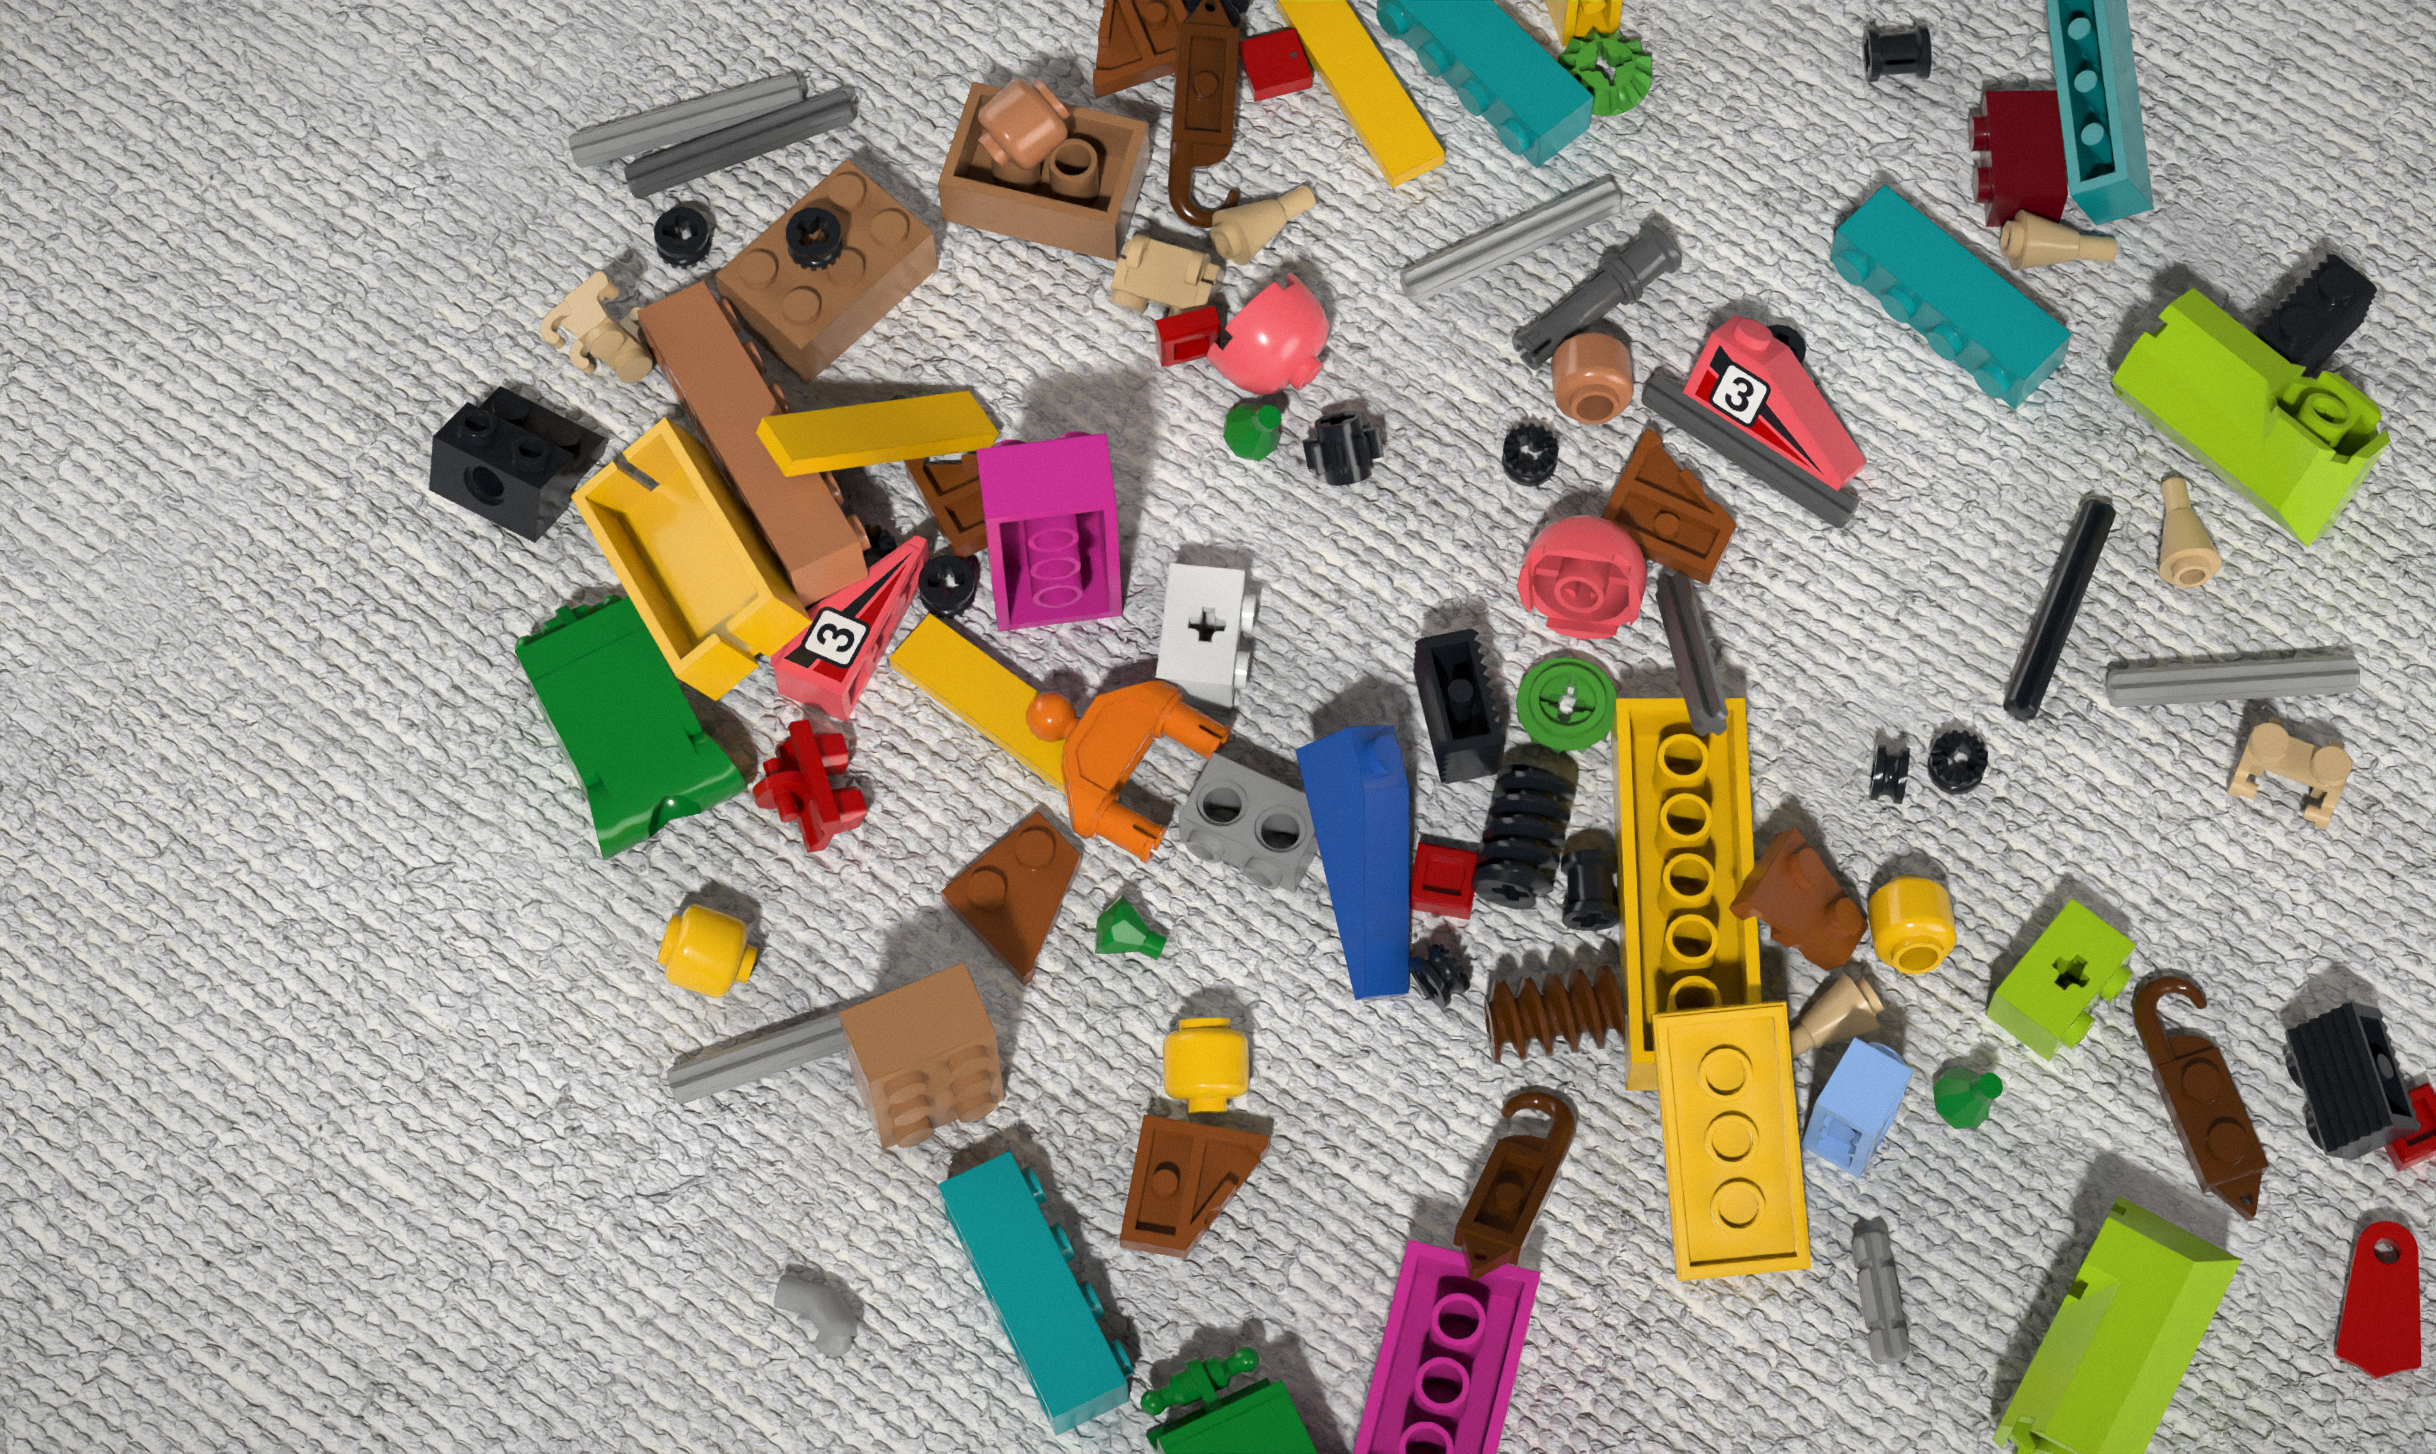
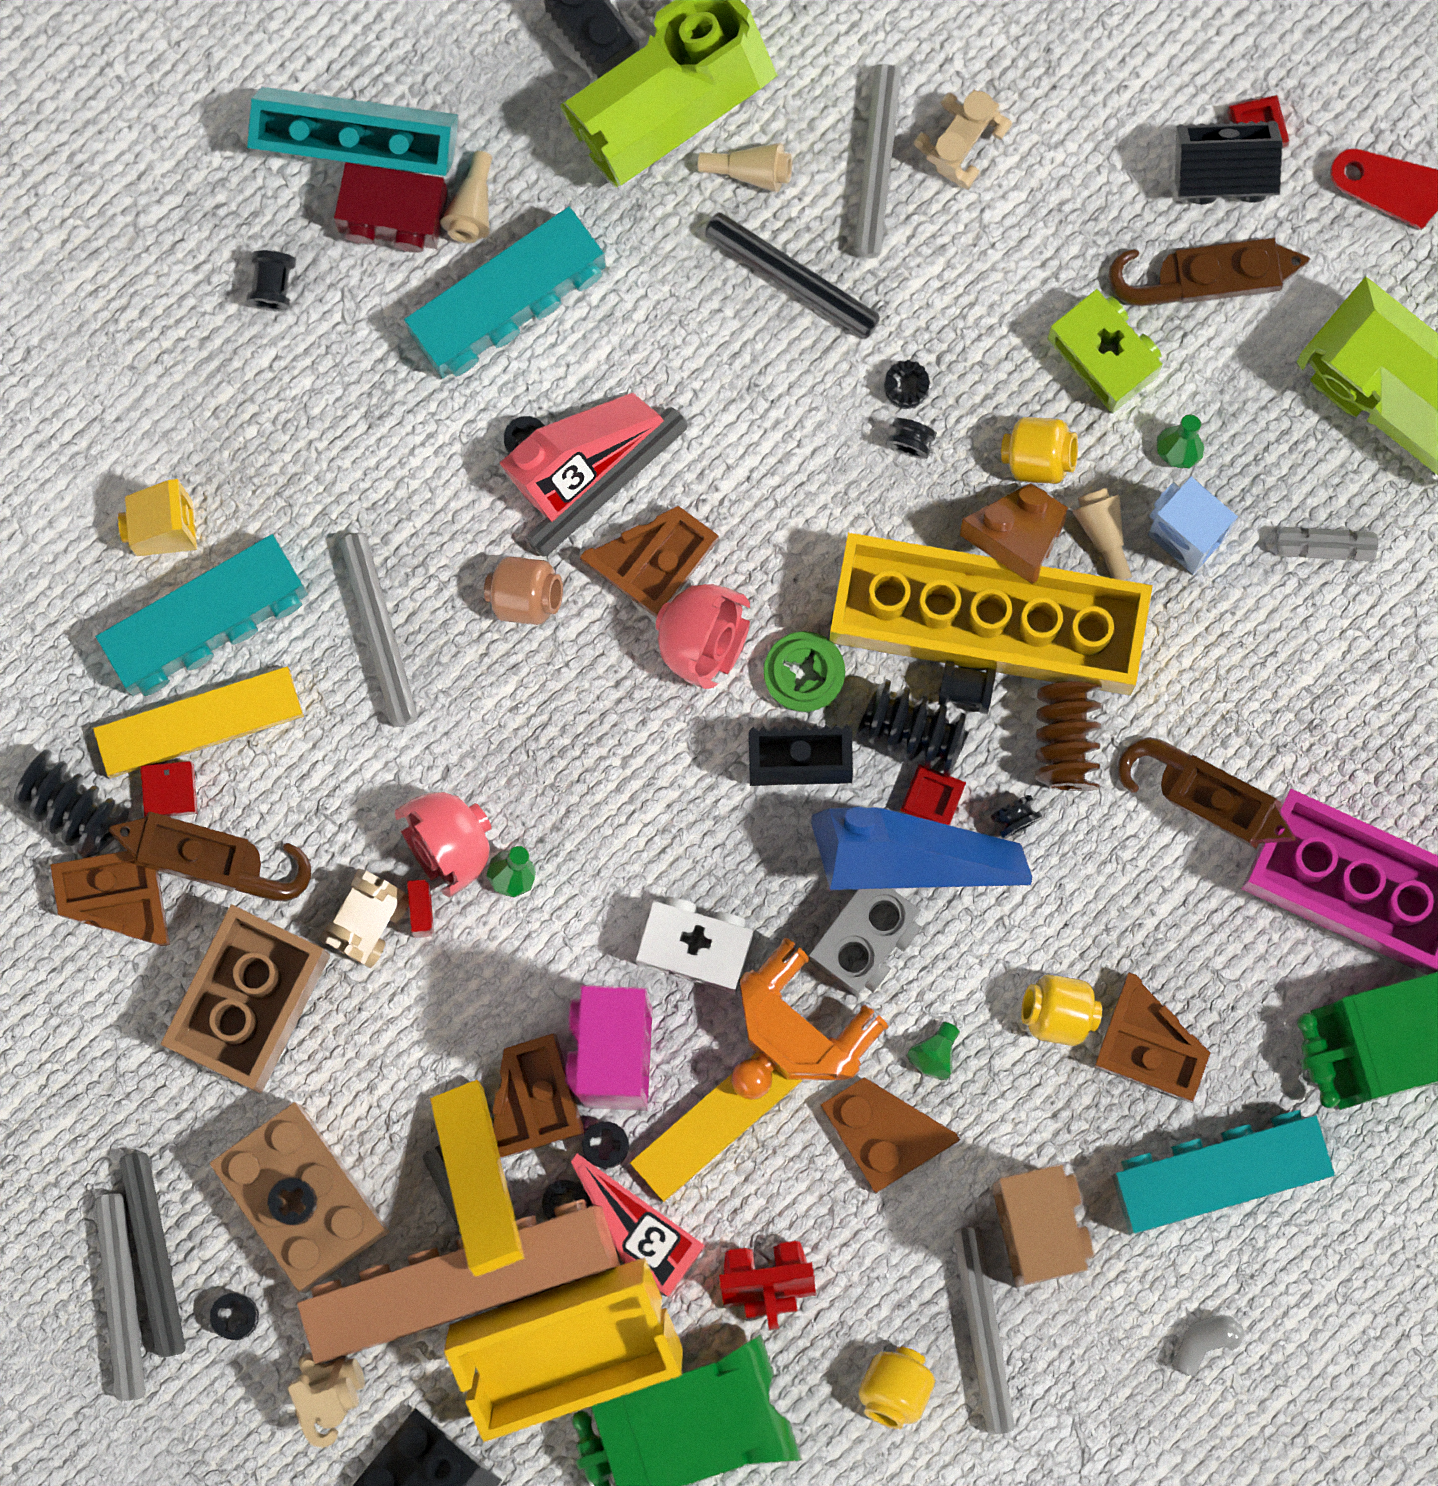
camera: 75 degrees left, 15 degrees up
(1023, 124) = (224, 1008): nougat head -> none
(1246, 229) = (326, 841): tan cone -> none
(1343, 448) = (550, 802): black gear -> none
(1537, 440) = (563, 648): black bush -> none
(1618, 281) = (438, 552): dark grey pin -> none
(1631, 76) = (216, 503): bright green gear -> none
(1691, 654) = (798, 565): dark grey axle -> none
(1730, 1140) = (1201, 624): yellow tile -> none

